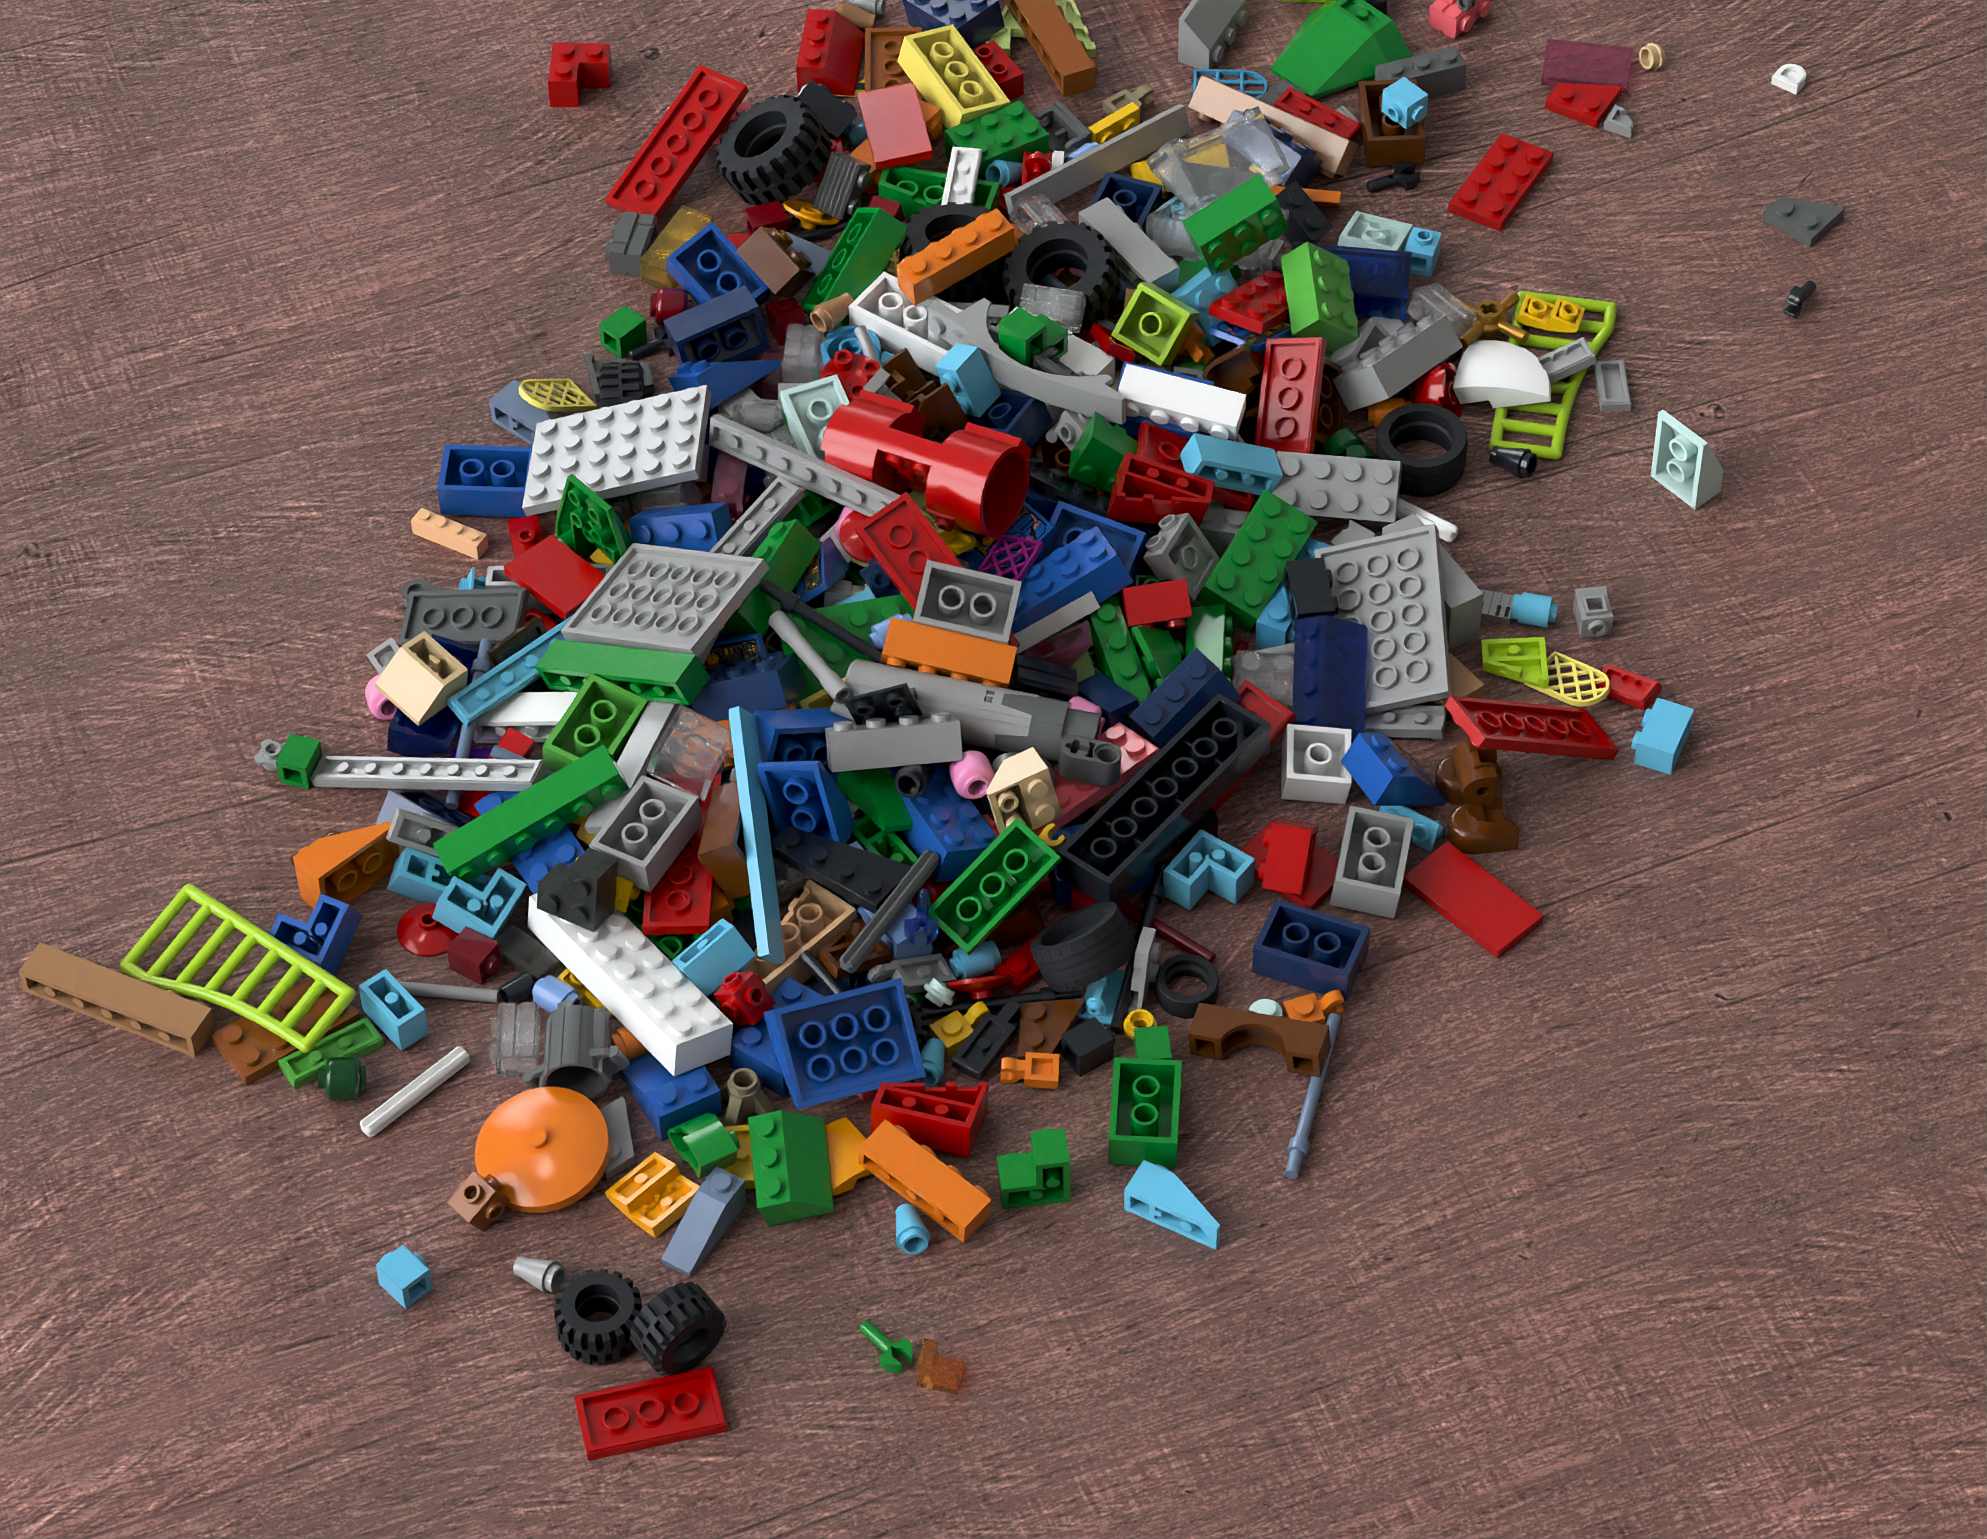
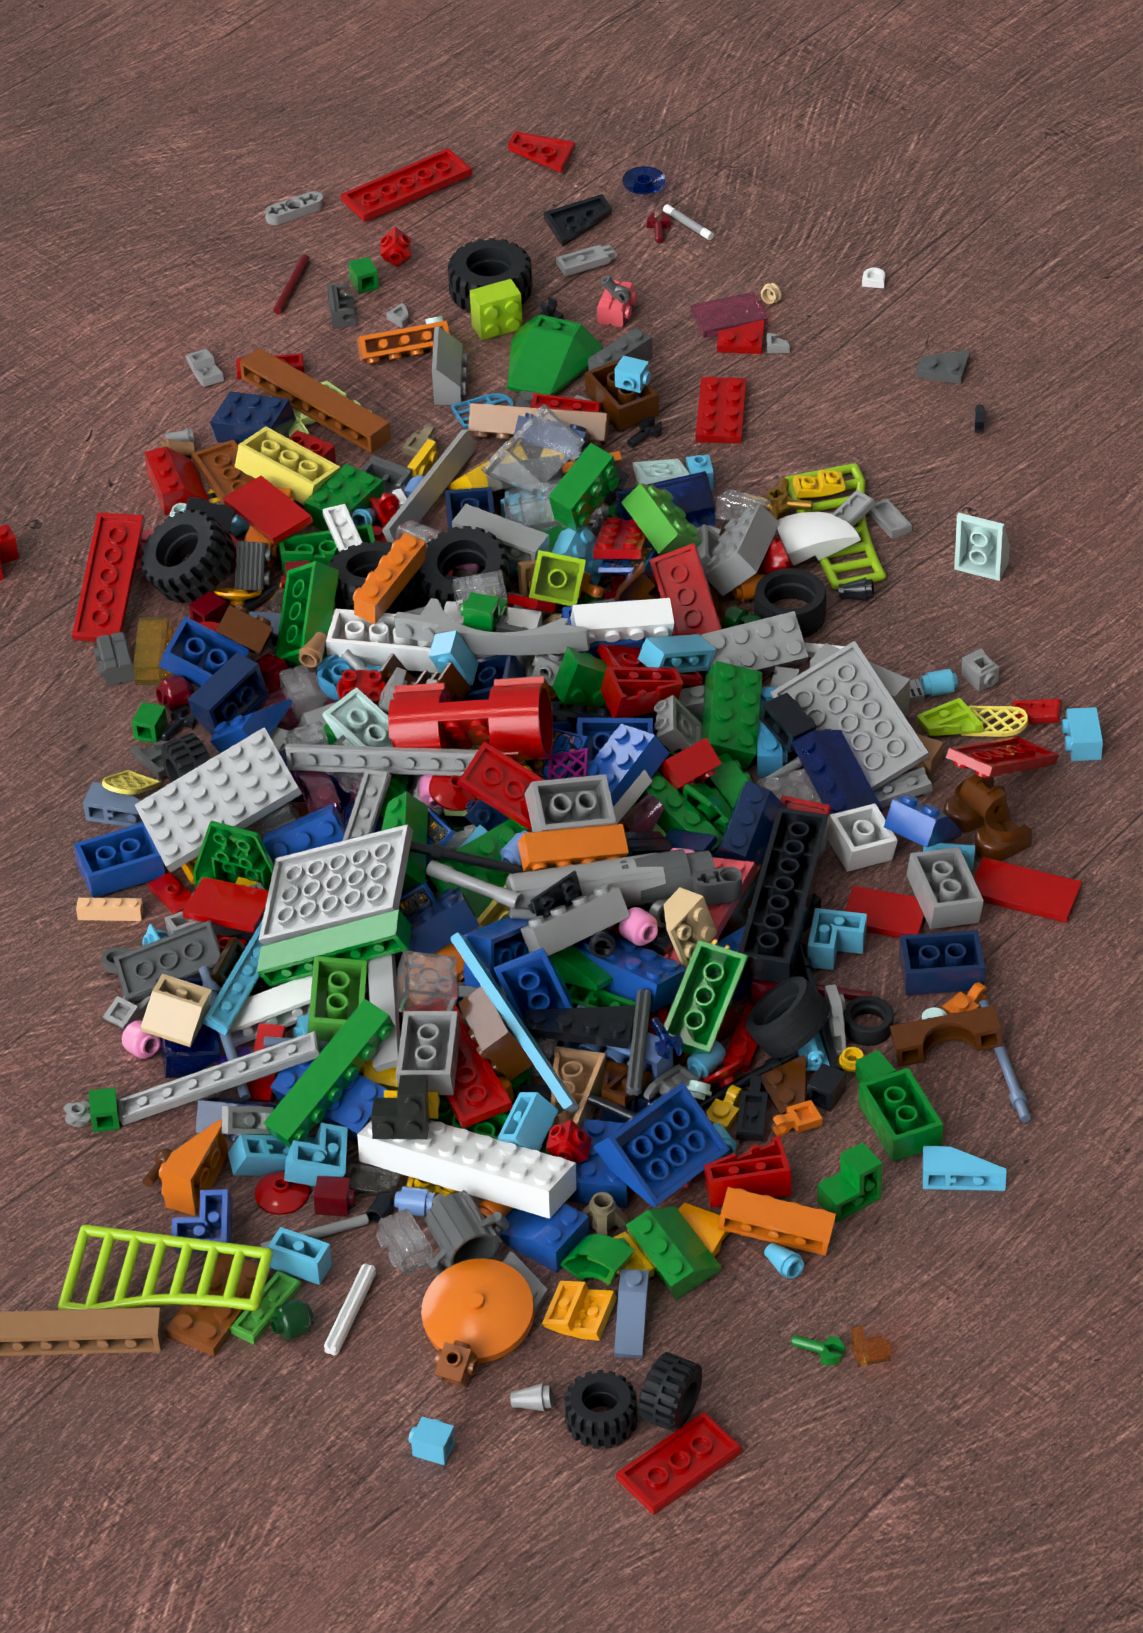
camera: 25 degrees left, 5 degrees down
(1288, 855) = (889, 903): red brick -> none

